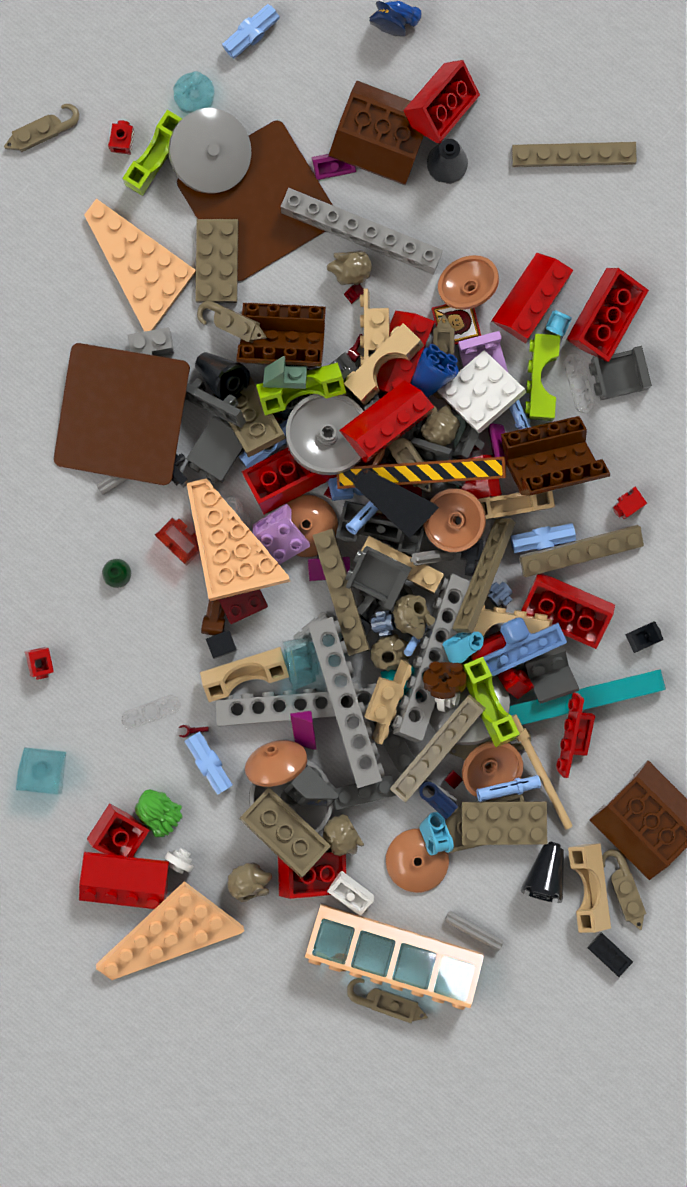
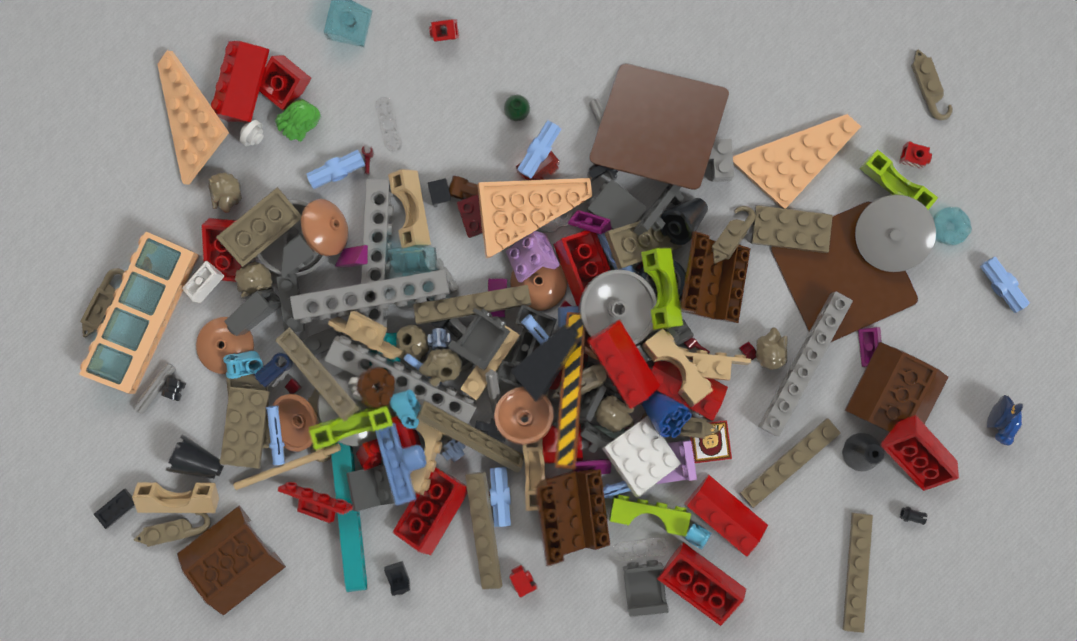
camera: 95 degrees right, 0 degrees up
(163, 539) = (539, 149): none -> light blue piece
(236, 476) = (590, 222): none -> magenta slope
(282, 376) = (674, 273): sand green slope -> none
(378, 831) = (253, 311): none -> dark grey slope
(466, 234) = (790, 462): none -> dark tan plate
(468, 282) = (753, 456): nougat dish -> none
(472, 909) = (174, 387): none -> black wheel
(506, 108) = (912, 515): none -> black pin

